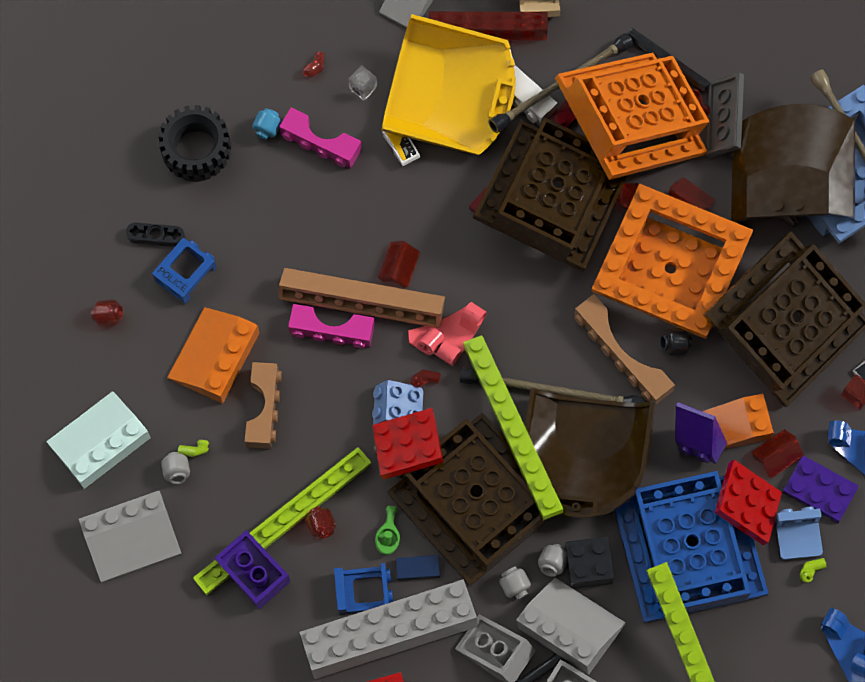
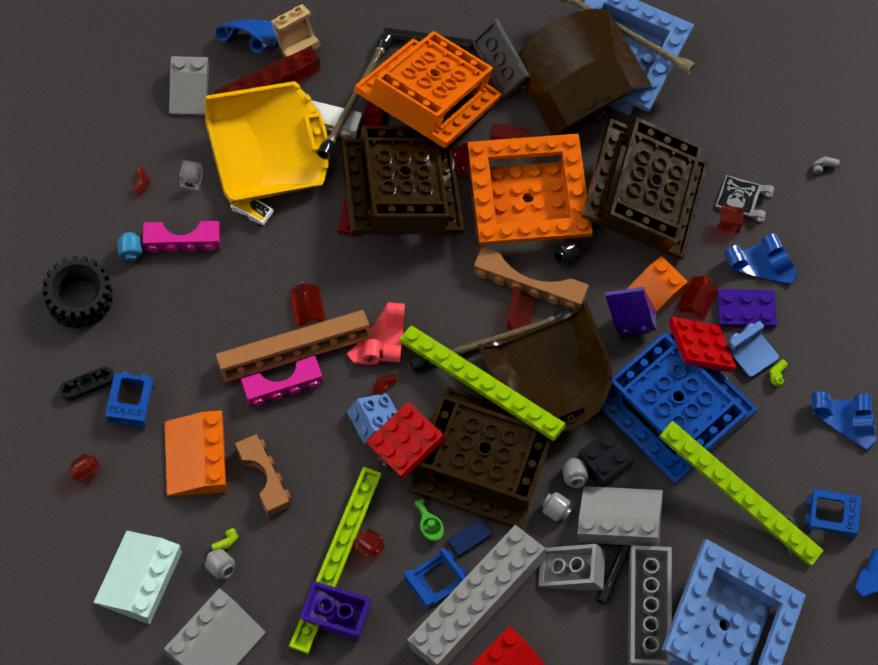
camera: 35 degrees left, 5 degrees down
(596, 374) = (520, 310): none -> clear red panel

